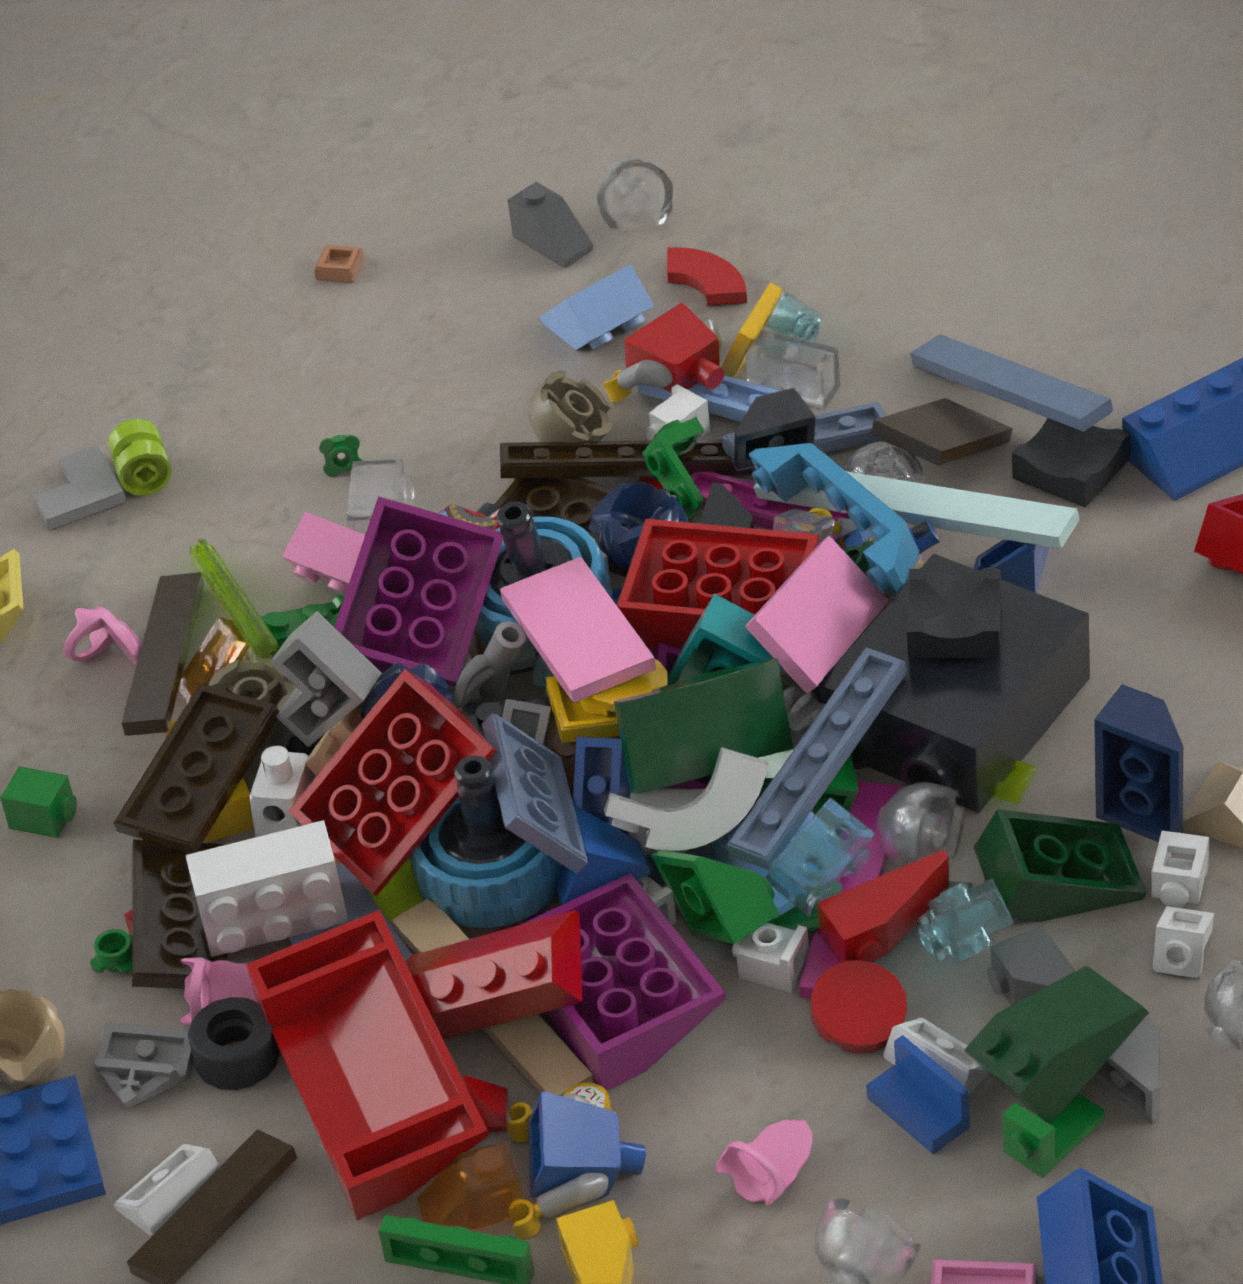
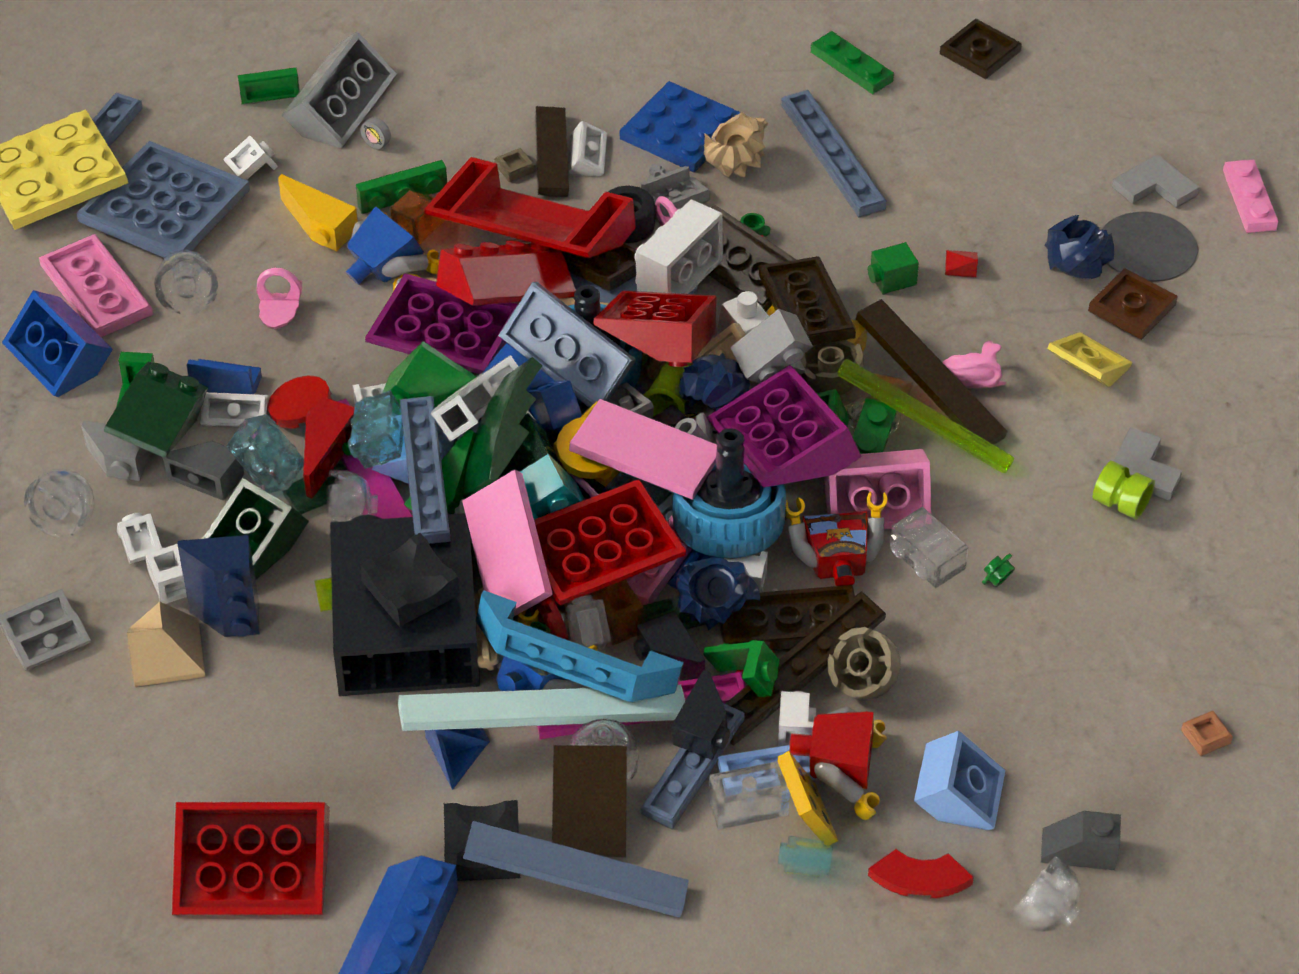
camera: 135 degrees right, 5 degrees up
(275, 1223) = (515, 164): none -> dark tan tile

